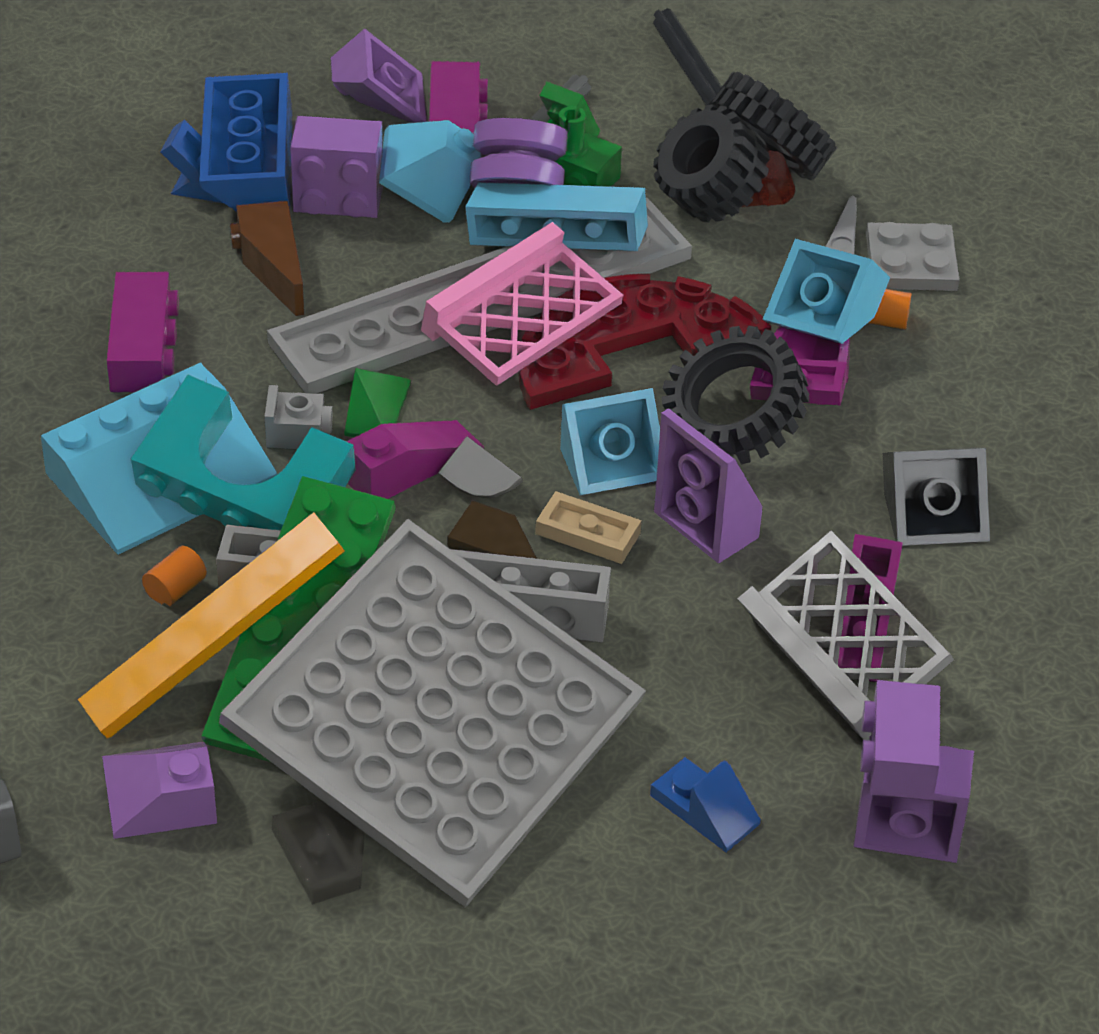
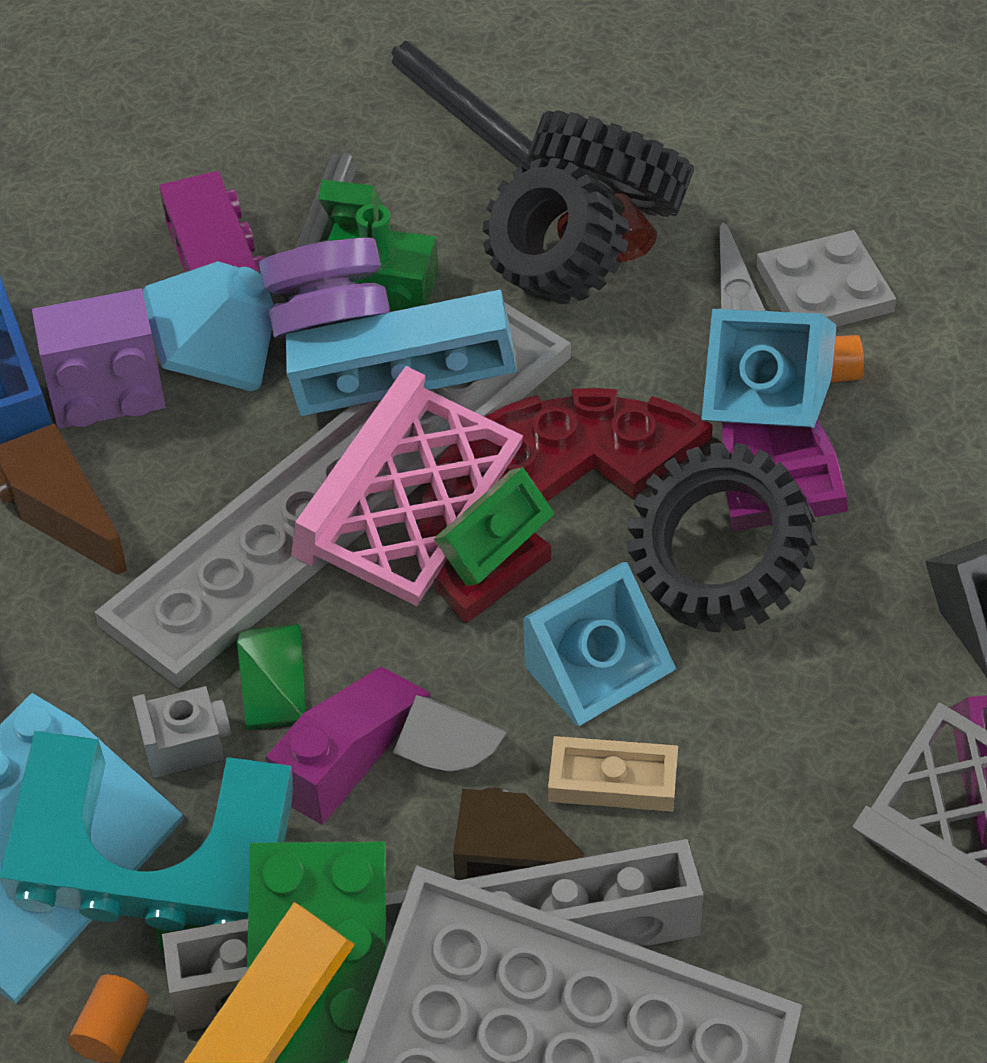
camera: 15 degrees left, 5 degrees up
(379, 78) = (99, 222): medium lavender slope -> none
(572, 345) = (494, 526): none -> green plate
(703, 491) = (747, 688): medium lavender slope -> none

